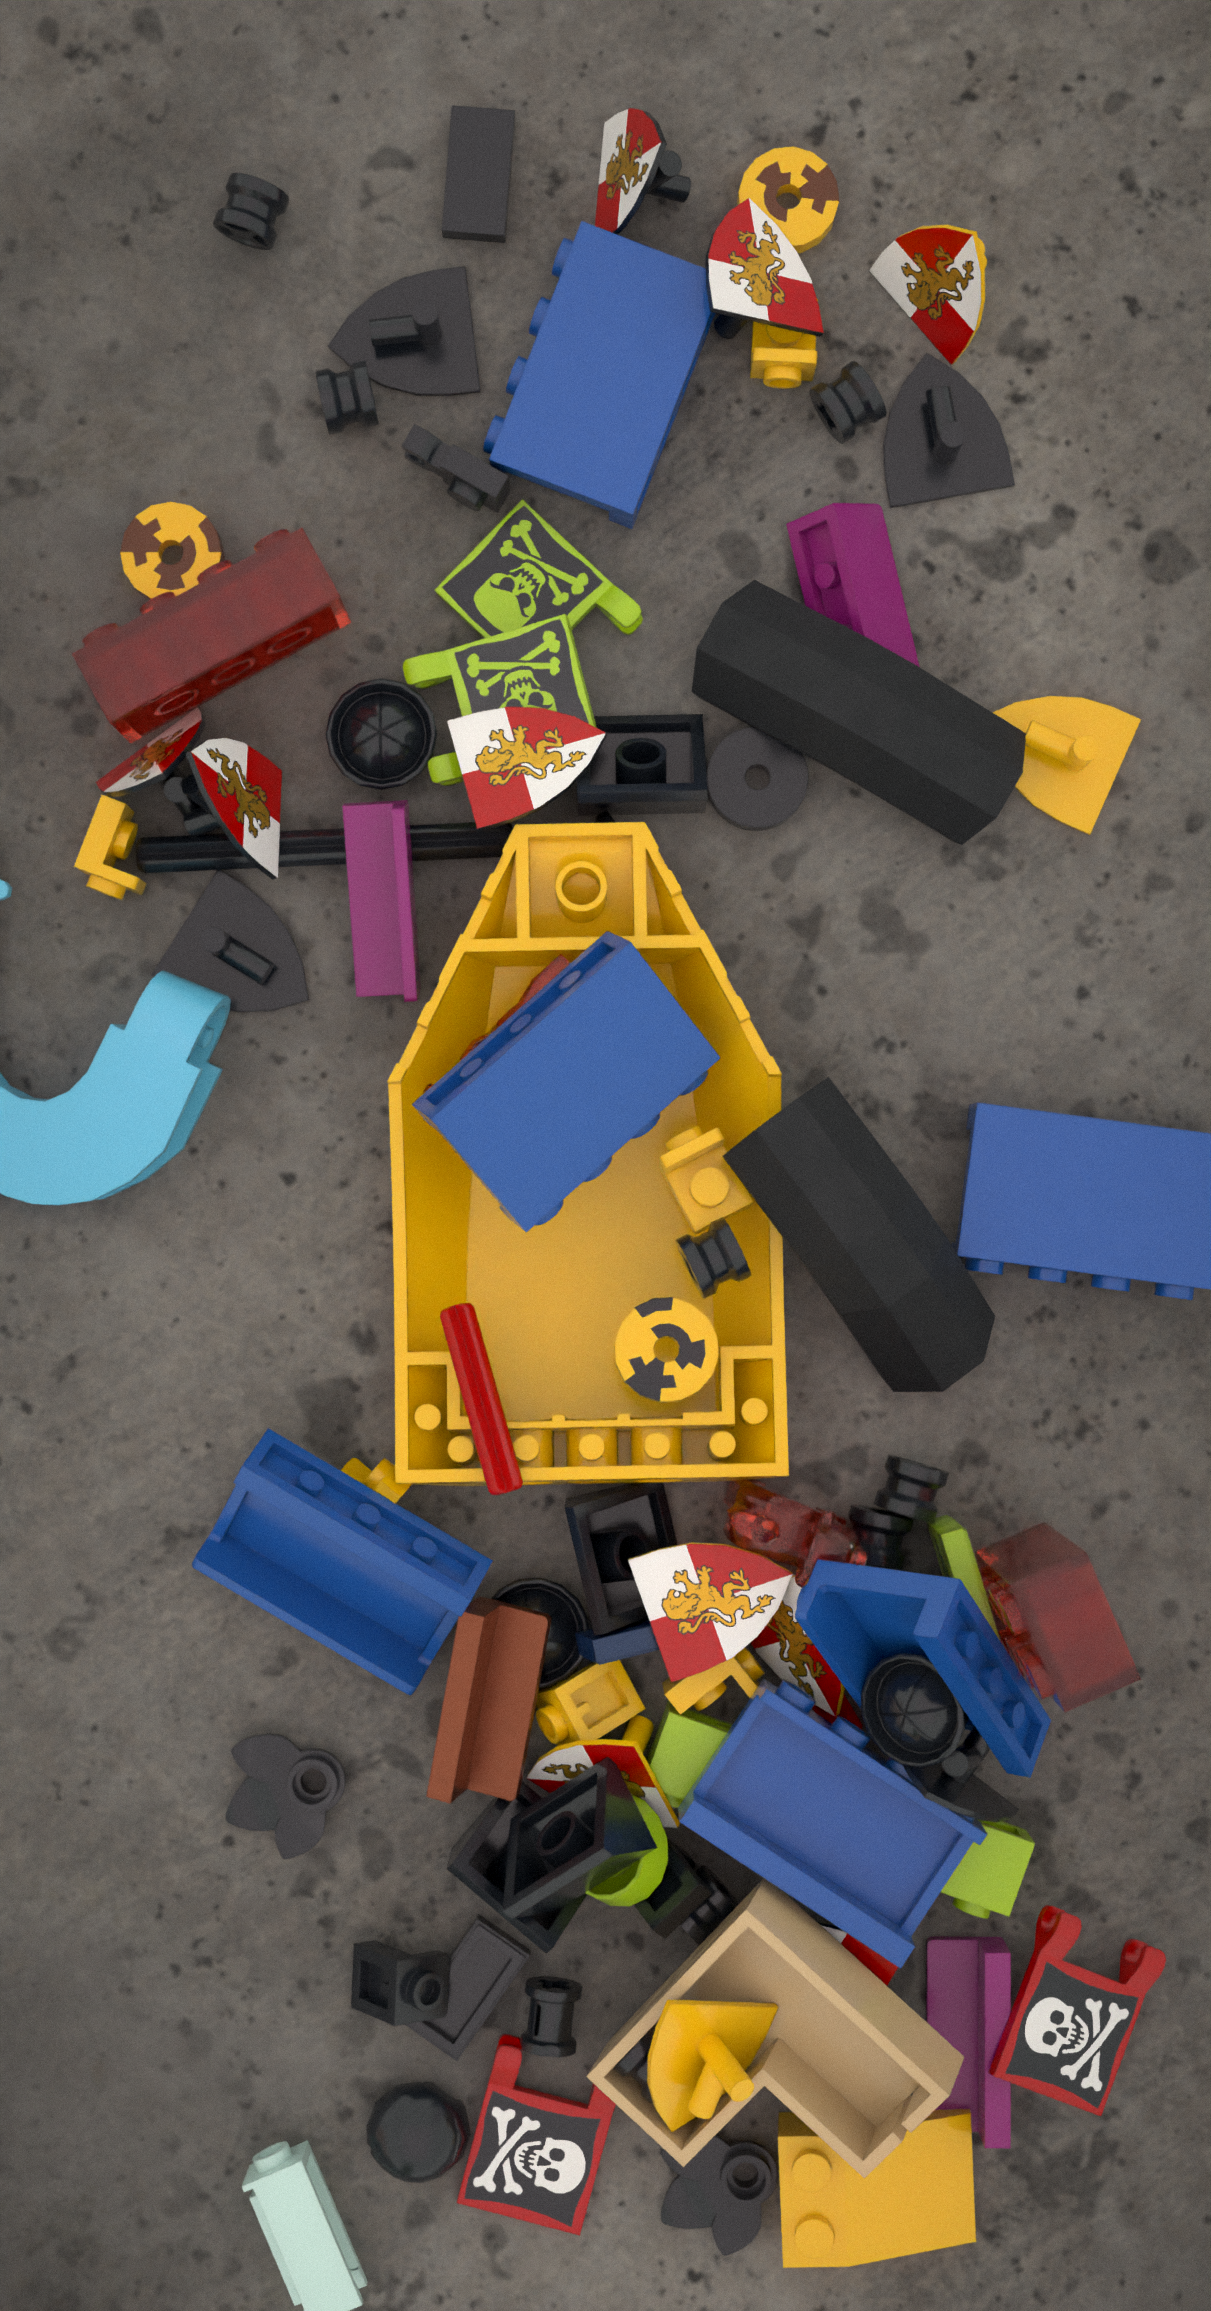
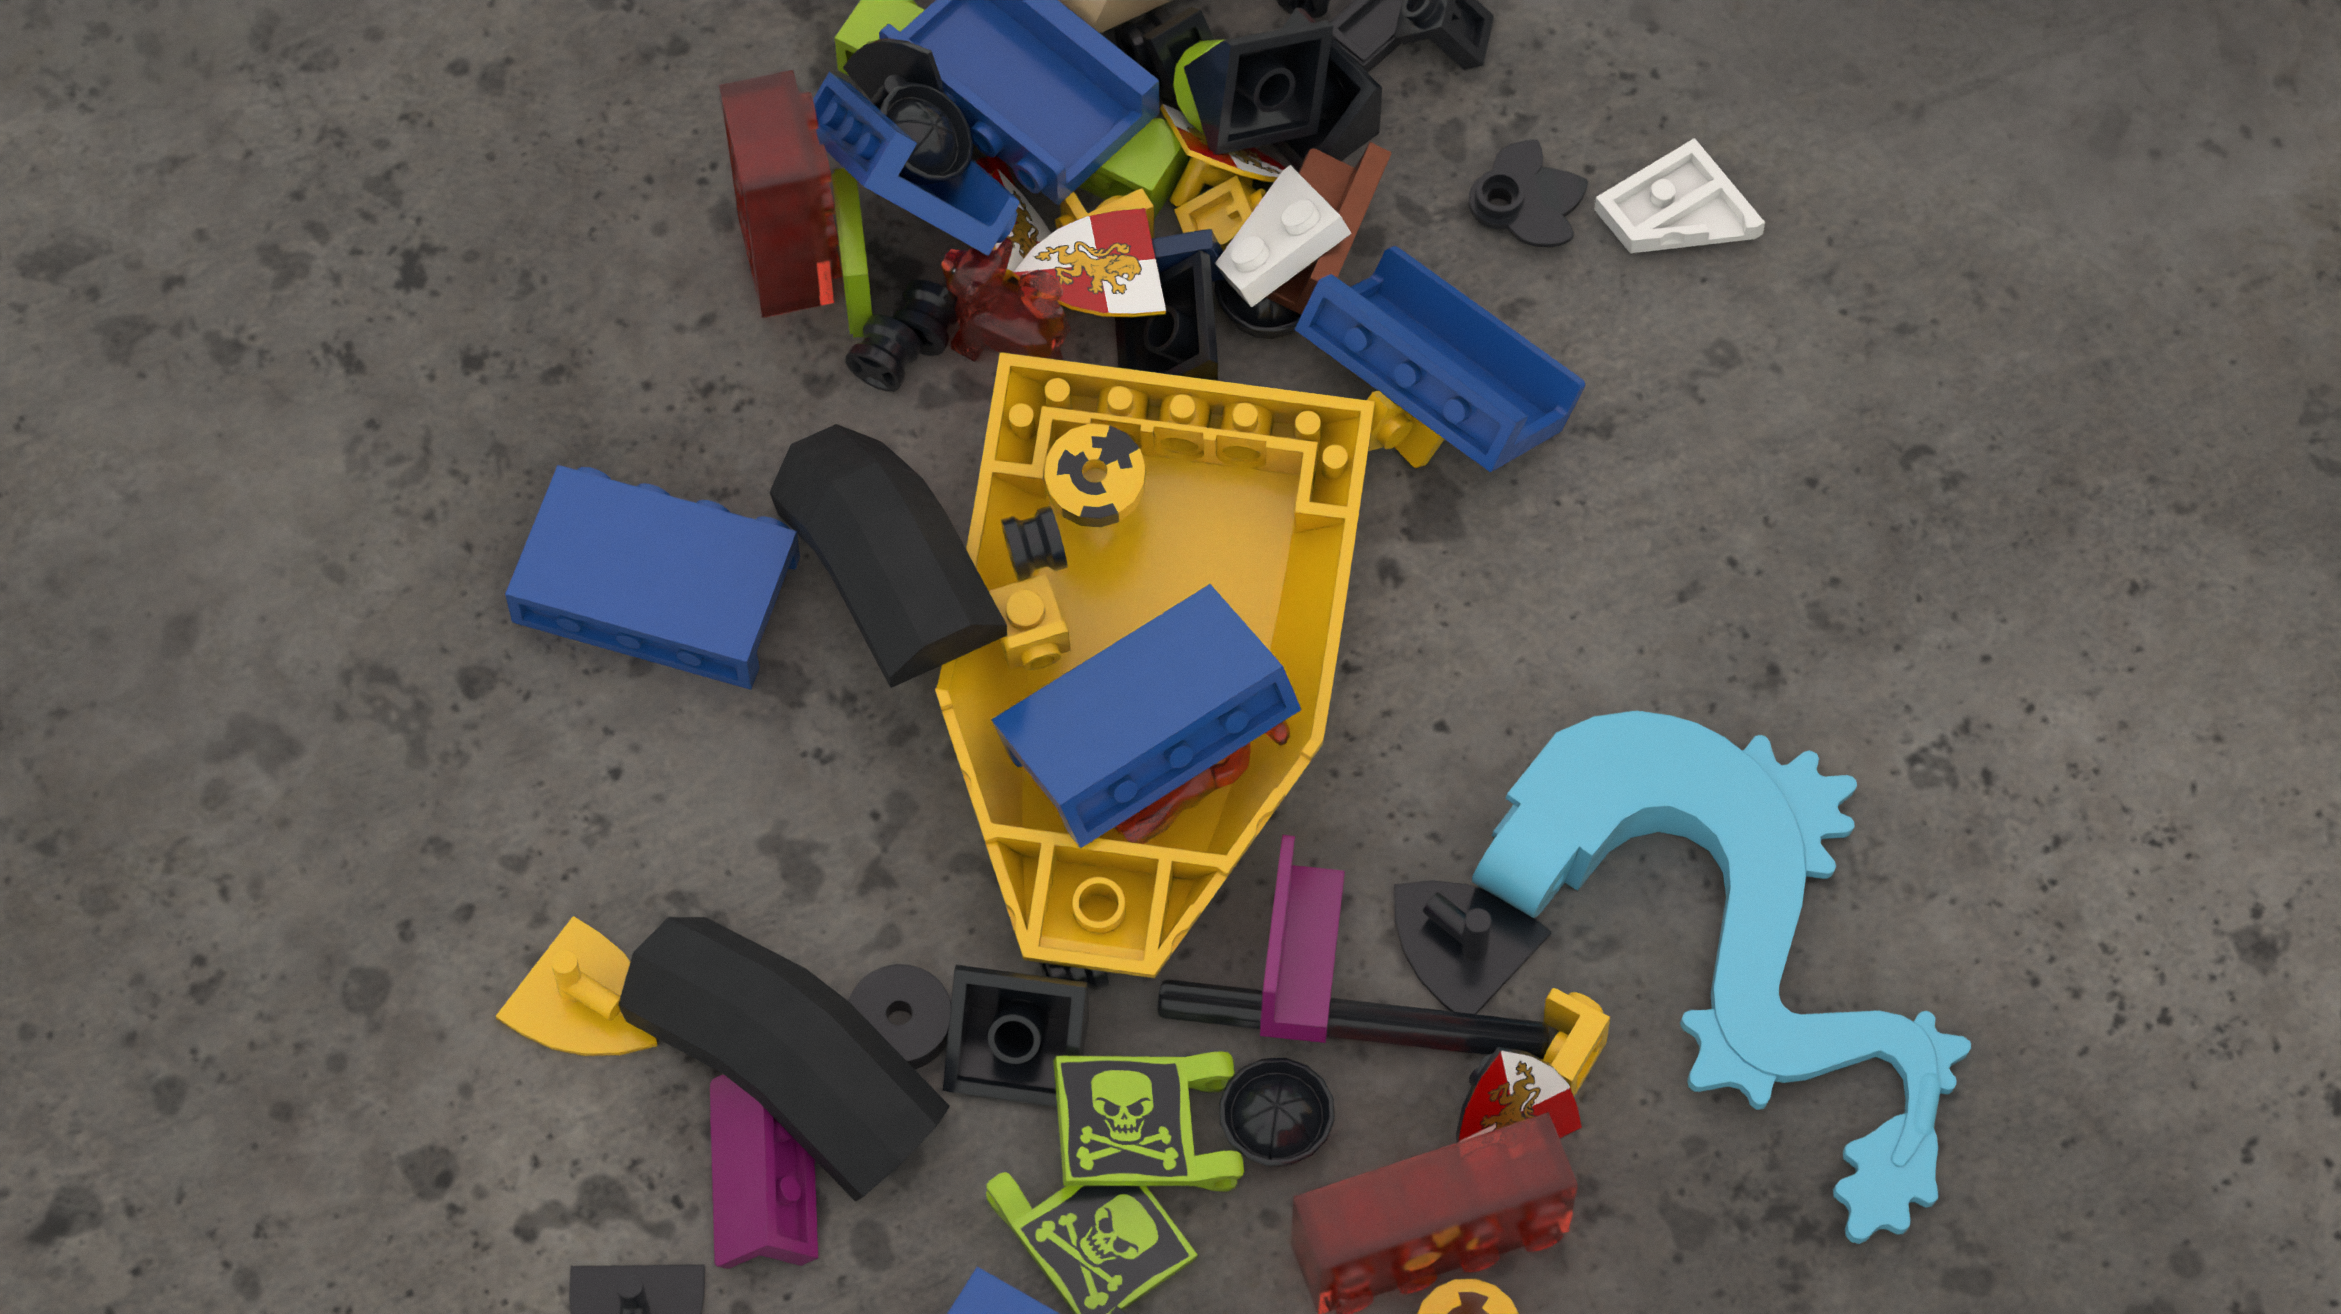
camera: 170 degrees left, 25 degrees down
(127, 1804) = (1678, 205): none -> white wing
(240, 795) = (1430, 1050): shield -> none
(481, 1399) = (1280, 457): red axle -> none
(520, 759) = (1138, 1042): shield -> none
(524, 1668) = (1280, 238): none -> white wing

